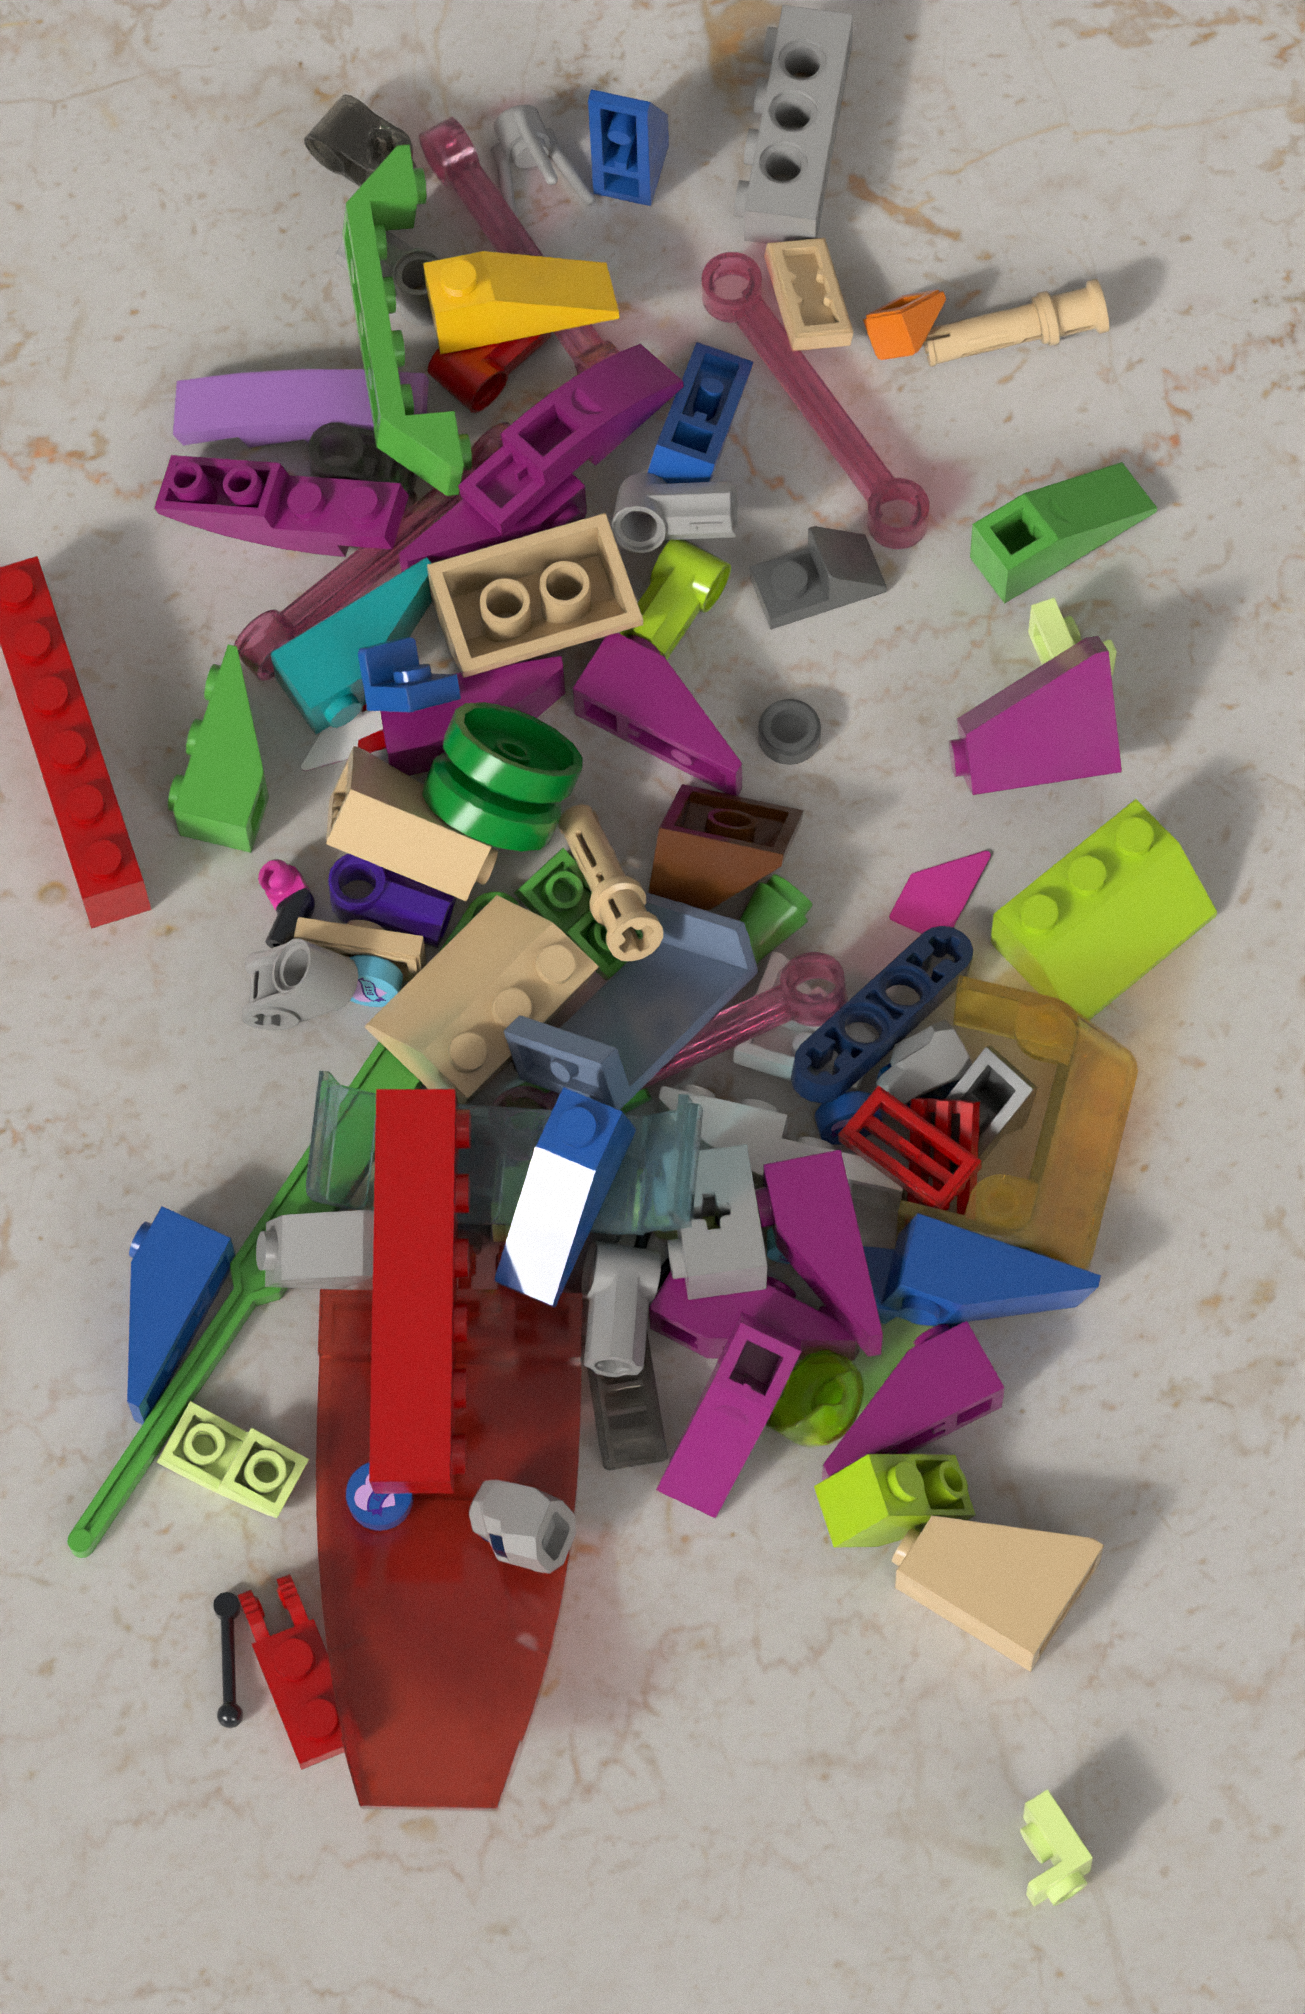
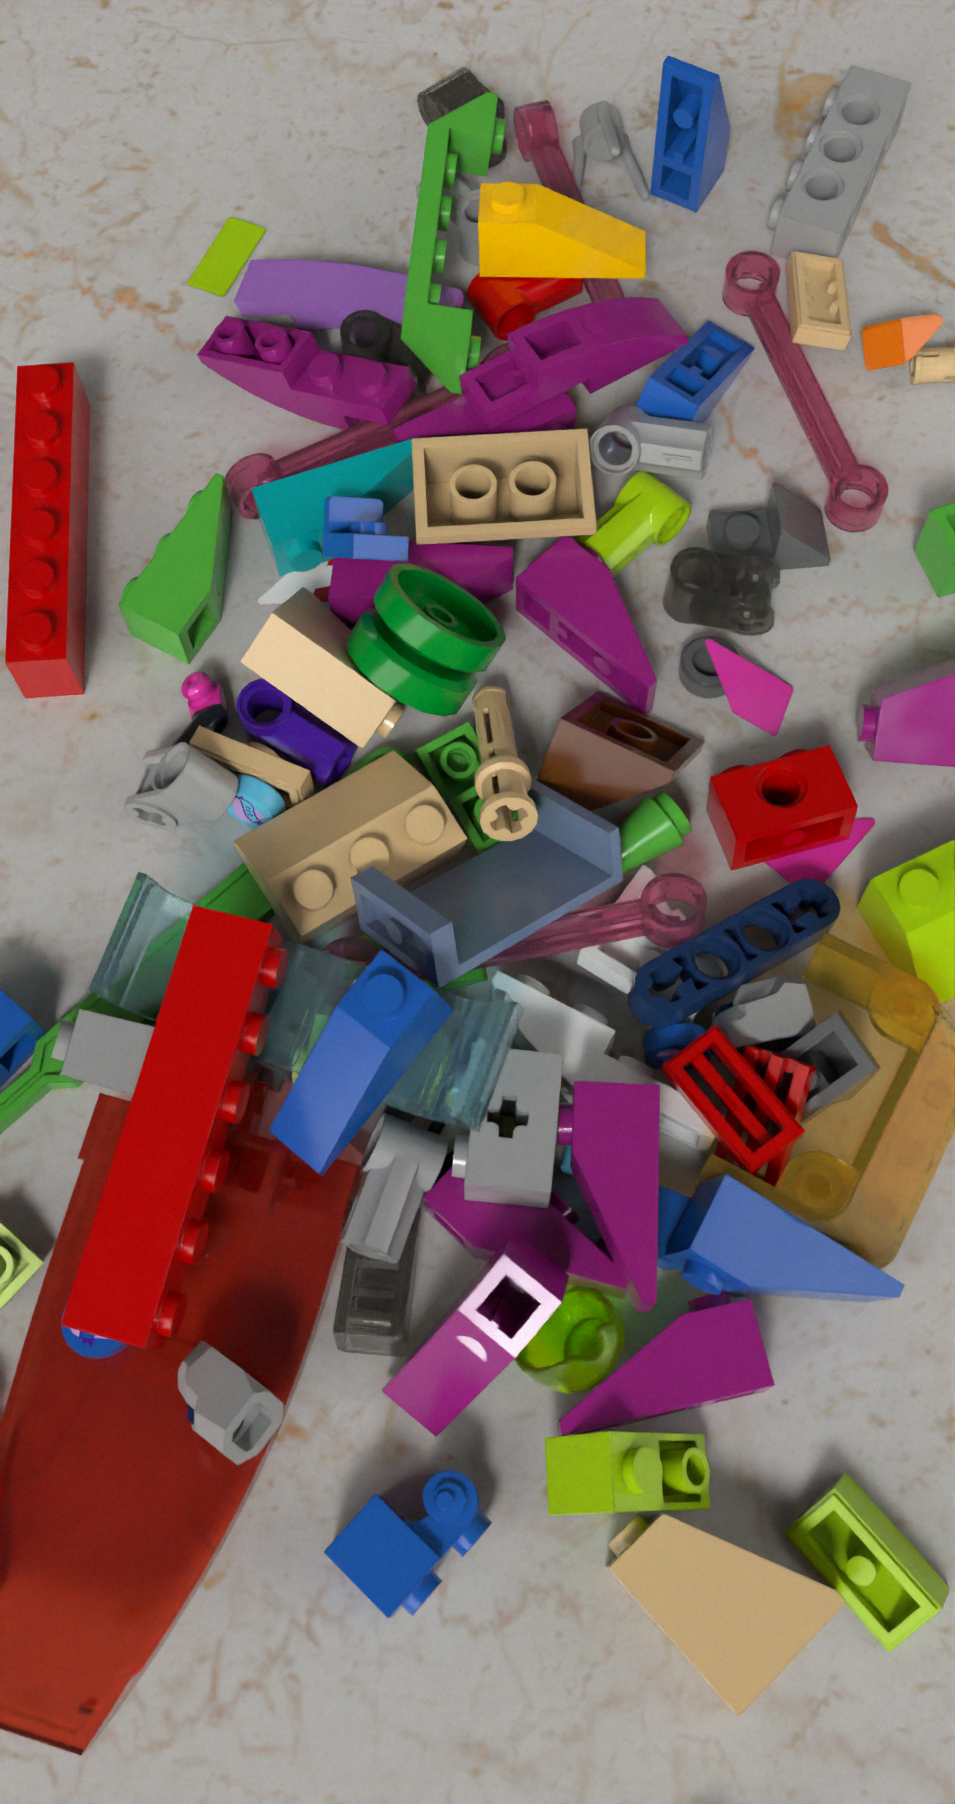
camera: 15 degrees right, 0 degrees up
(140, 375) = (226, 256): none -> lime sticker
(710, 1618) = (397, 1557): none -> blue brick
(788, 649) = (723, 591): none -> clear smoke piece
(836, 746) = (750, 690): none -> dark pink sticker
(878, 891) = (756, 831): none -> red brick
(1130, 1523) = (868, 1562): none -> lime slope

